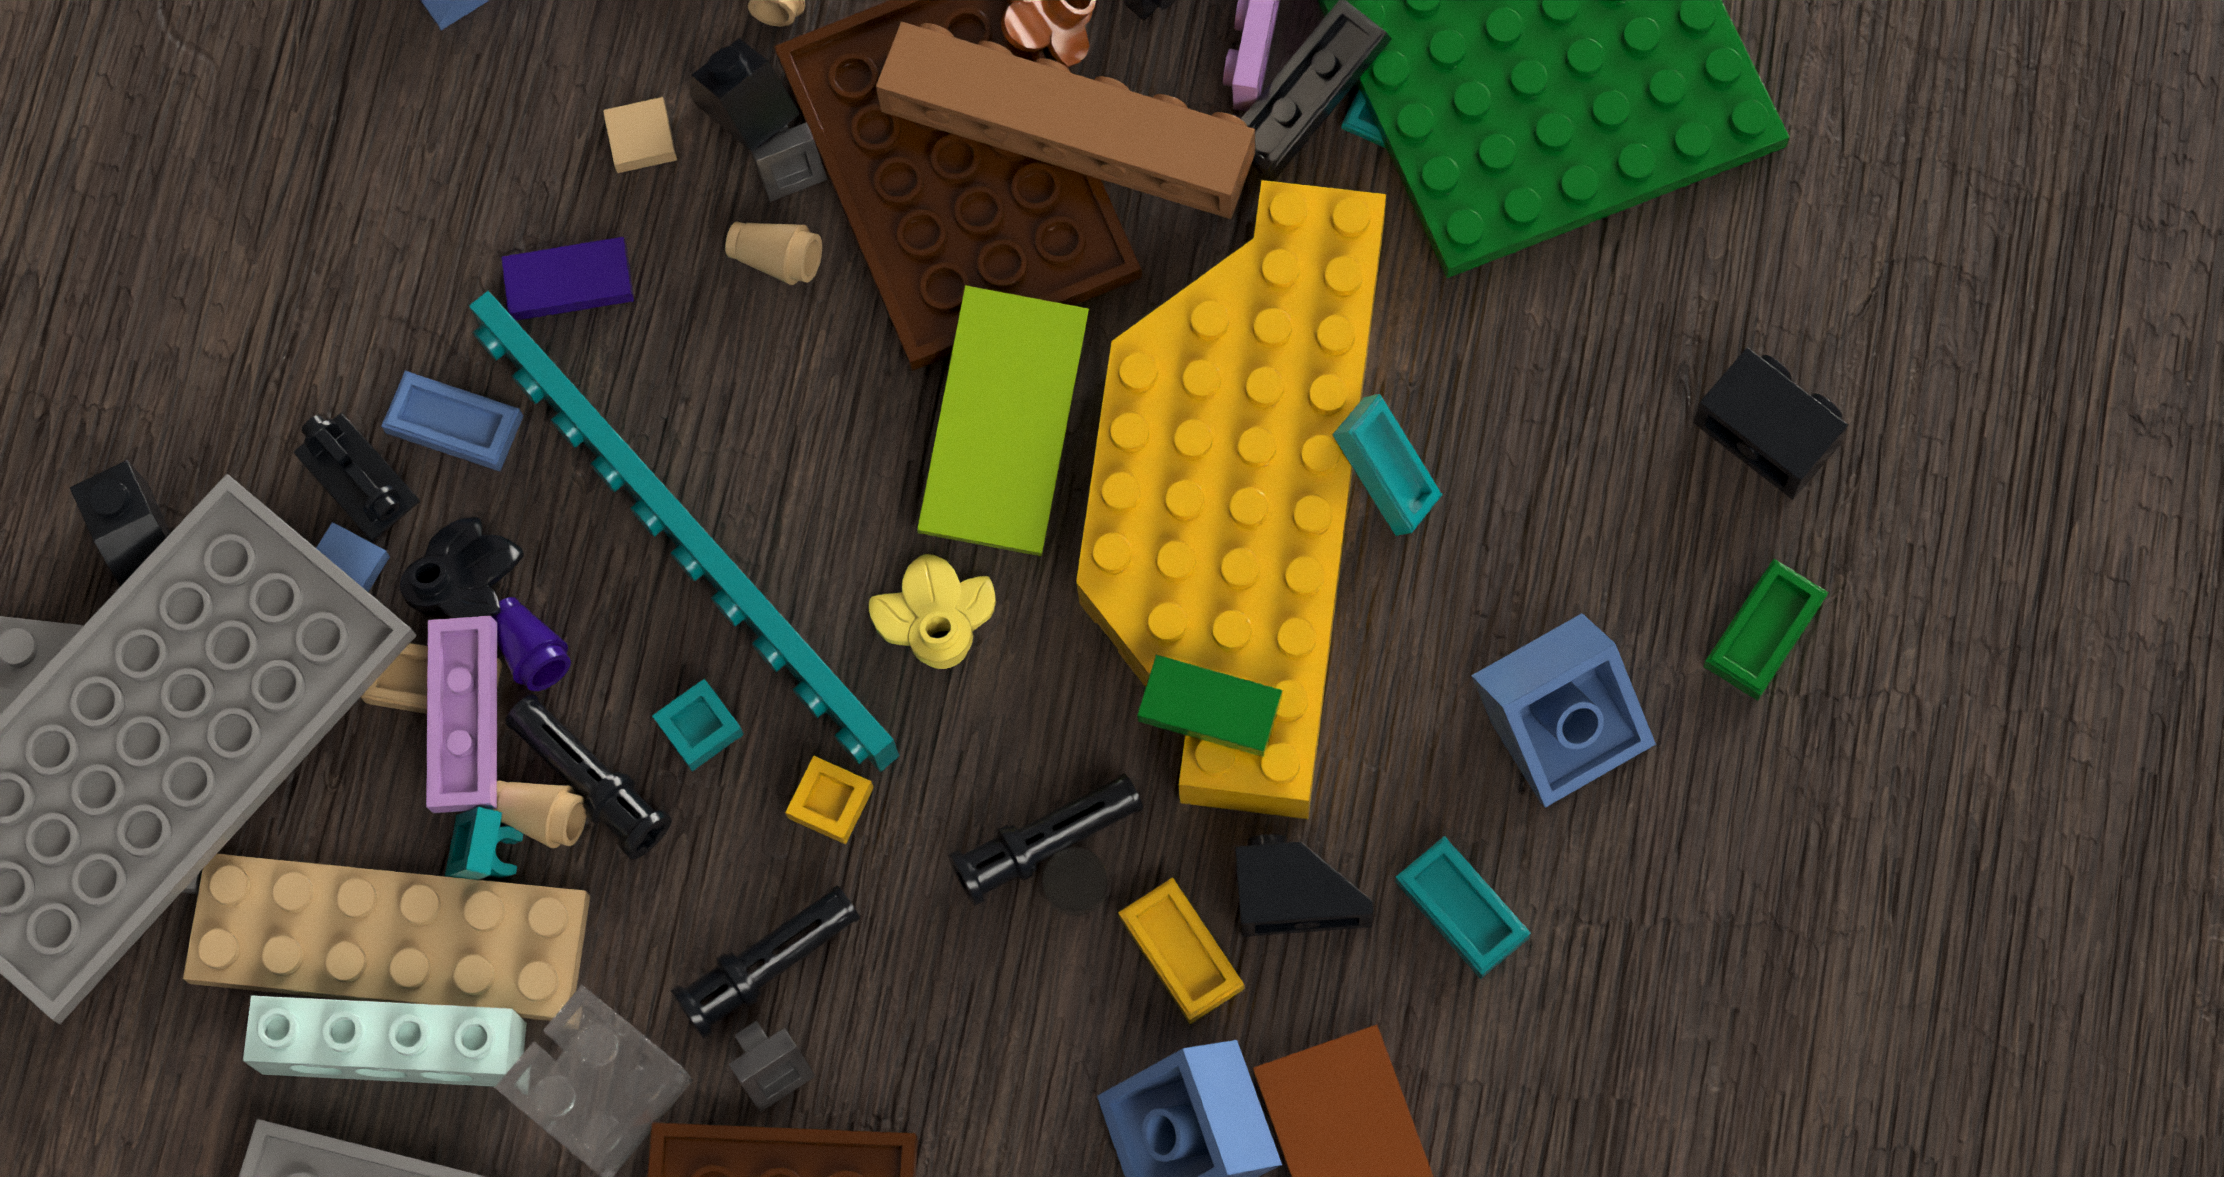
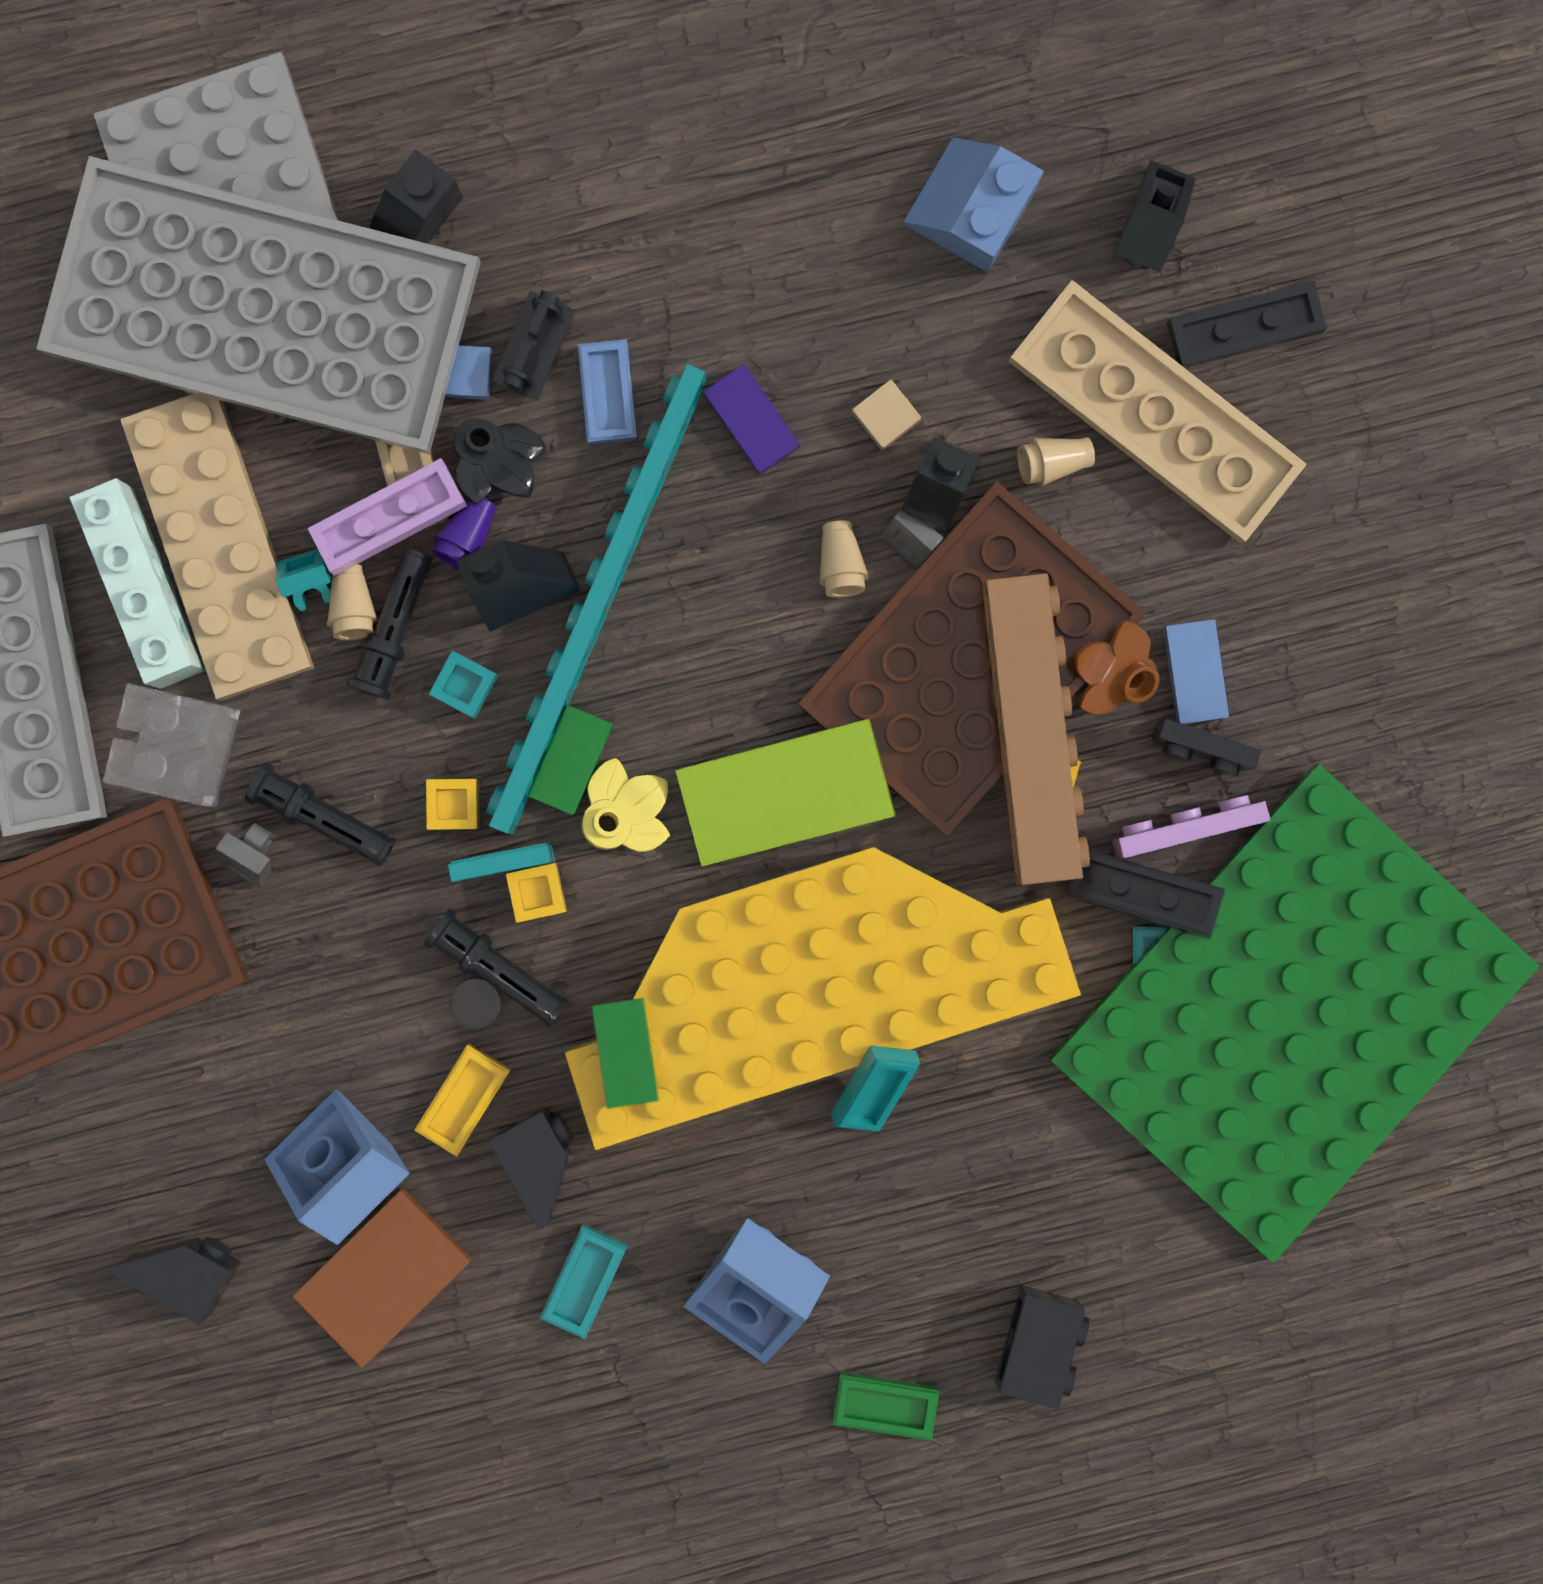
camera: 55 degrees right, 15 degrees up
(610, 610) = (515, 580): none -> black slope
(849, 645) = (571, 760): none -> green tile
(924, 771) = (501, 862): none -> teal tile
(979, 751) = (536, 892): none -> yellow plate

